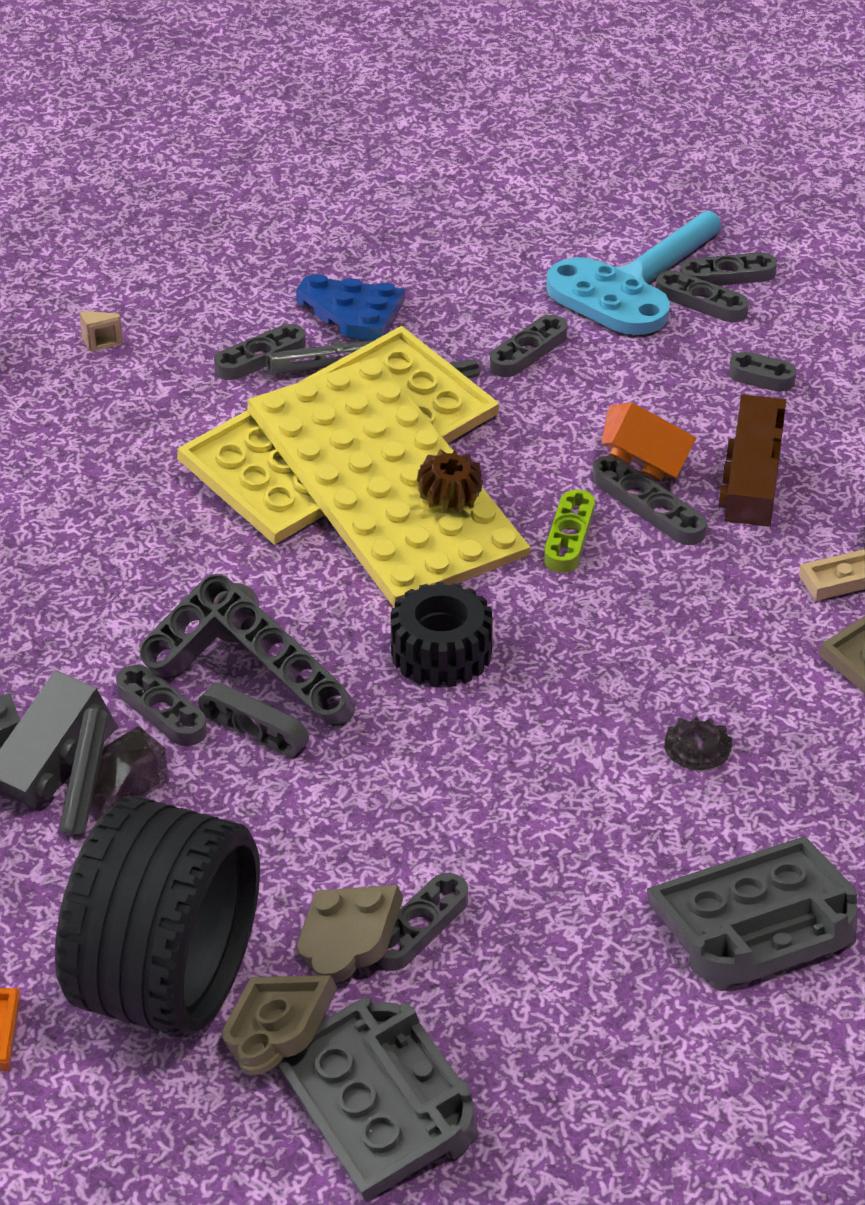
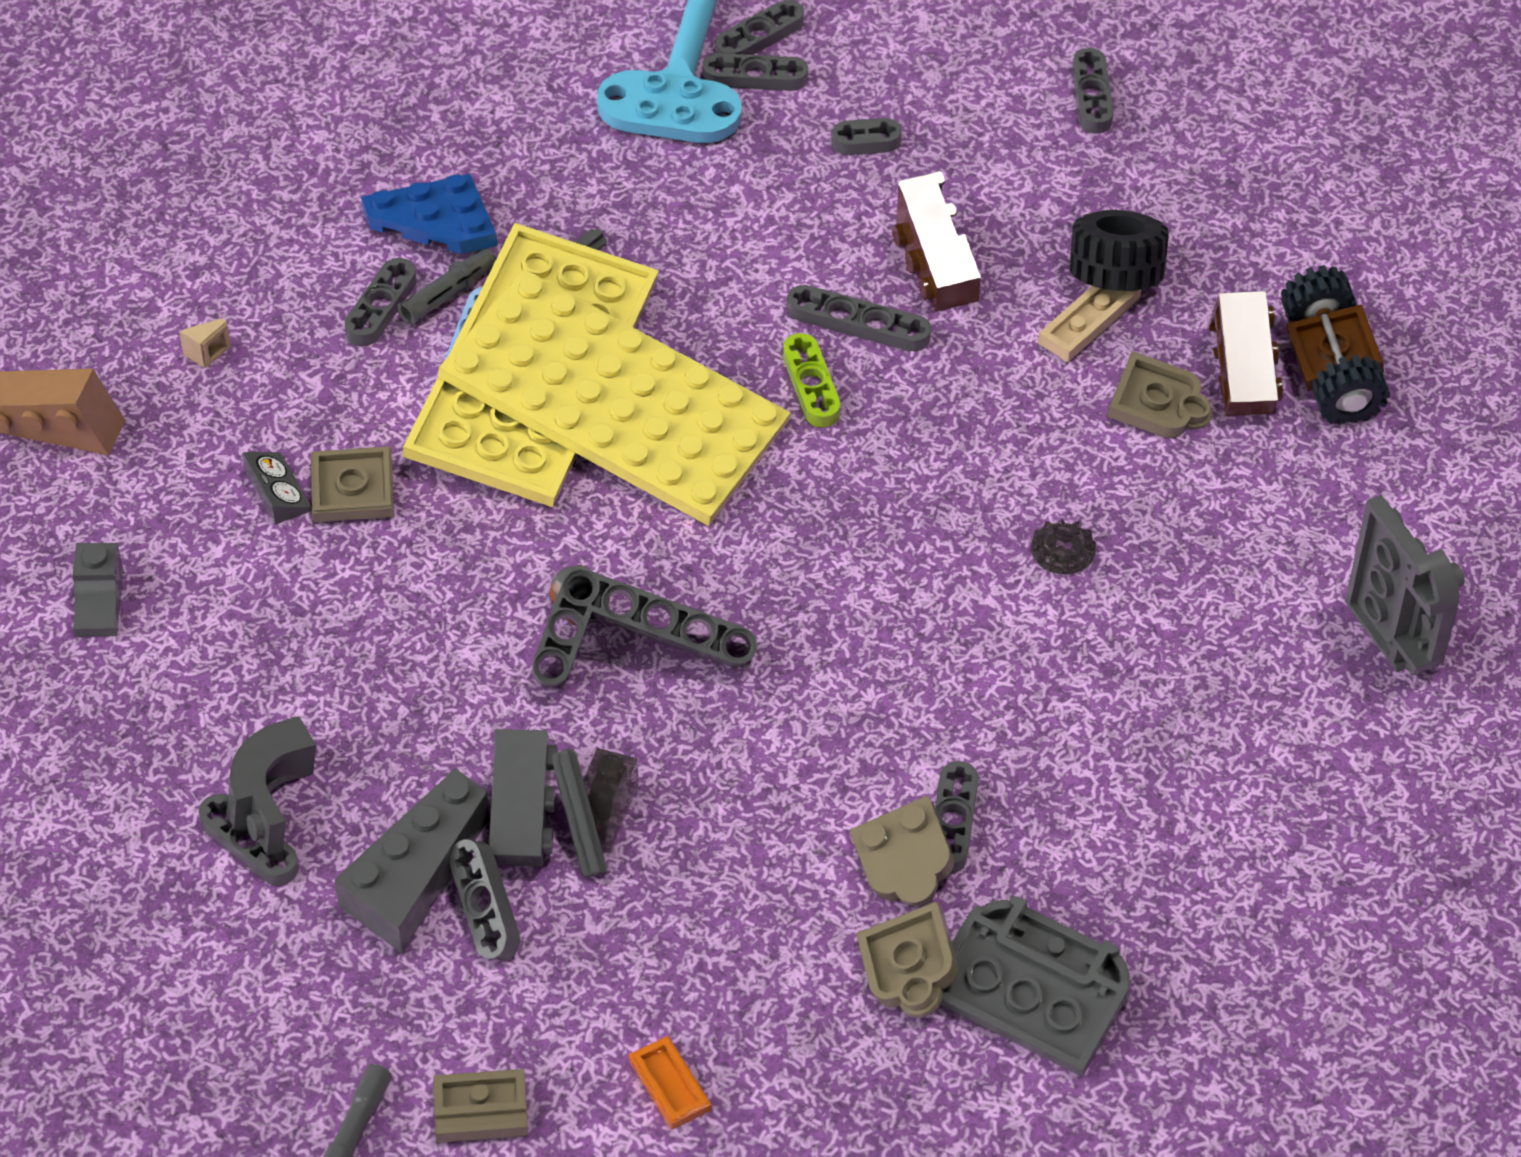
camera: 30 degrees left, 10 degrees up
(67, 446) = (275, 485): none -> slope
(126, 467) = (352, 484): none -> dark tan plate
(157, 916) = (784, 918): black tyre -> none
(158, 691) = (571, 702): dark grey beam -> none
(273, 726) = (700, 693): dark grey beam -> none
(441, 634) = (783, 561): black tyre -> none
(449, 480) = (691, 378): reddish brown gear -> none
(531, 335) = (630, 180): dark grey beam -> none
(646, 439) = (827, 260): orange slope -> none
(759, 913) = (1219, 682): dark grey plate -> none

